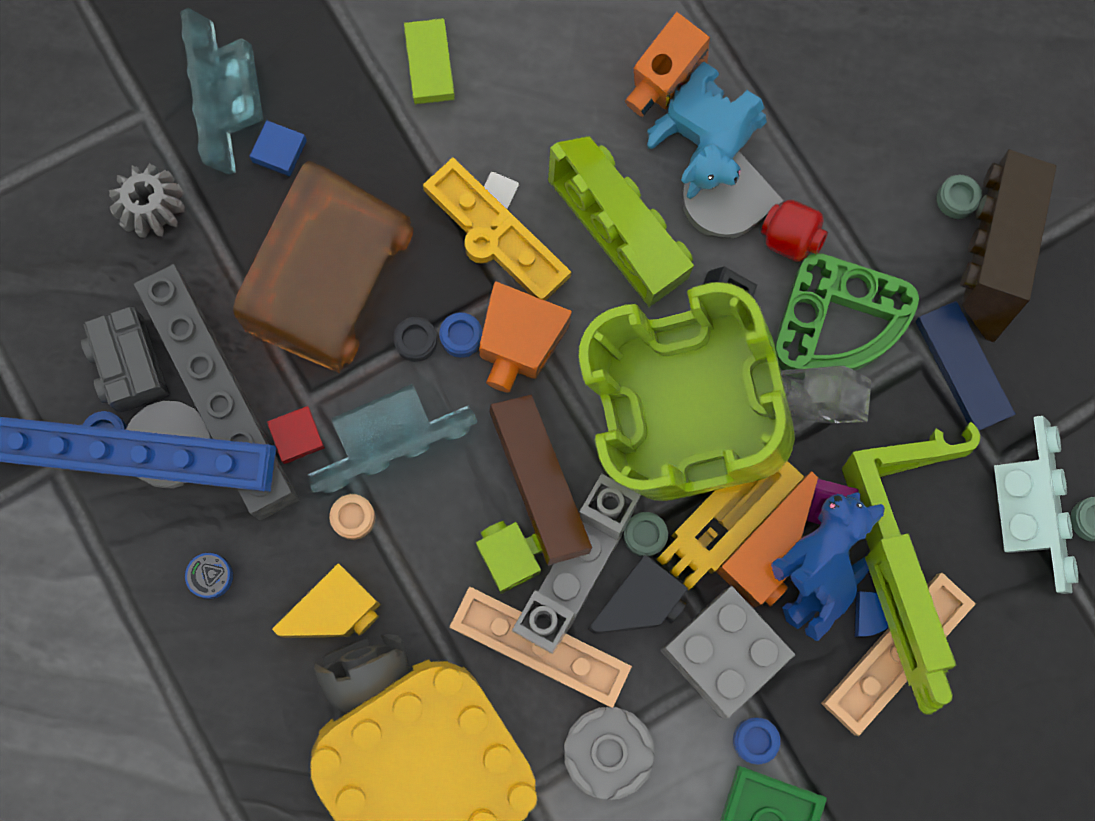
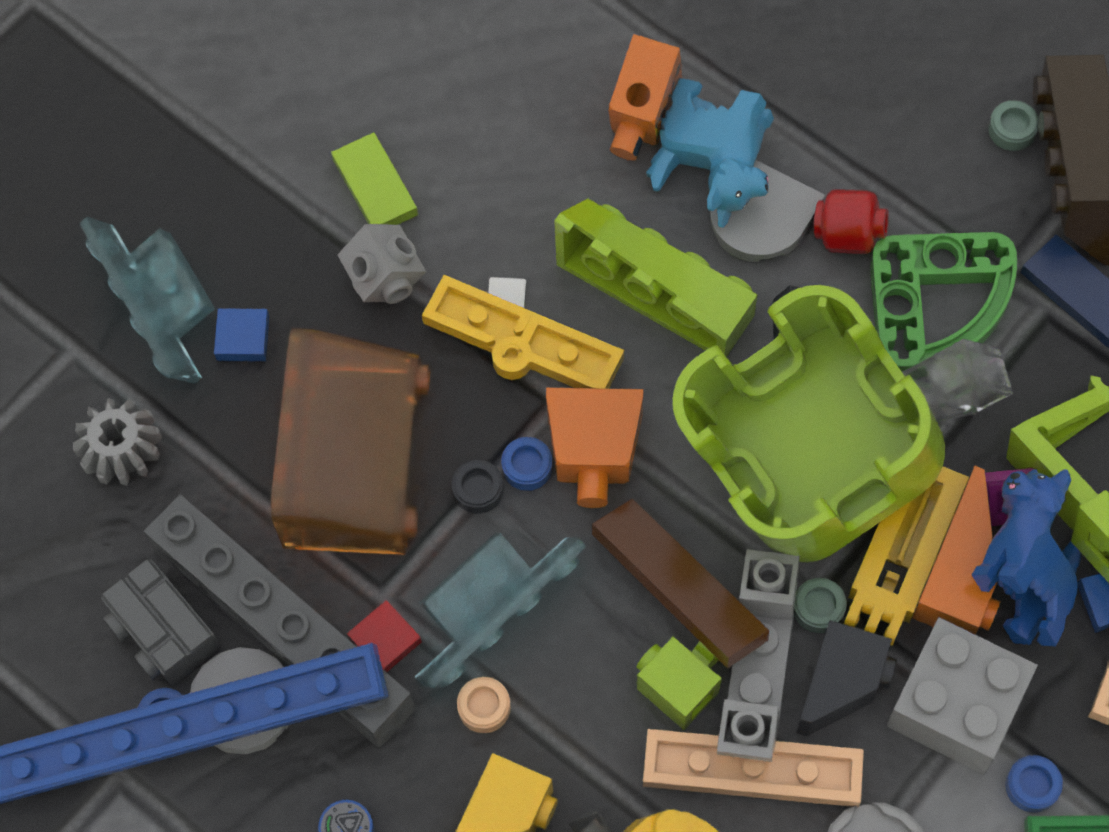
camera: 10 degrees left, 10 degrees down
(406, 130) = (382, 263): none -> light grey brick

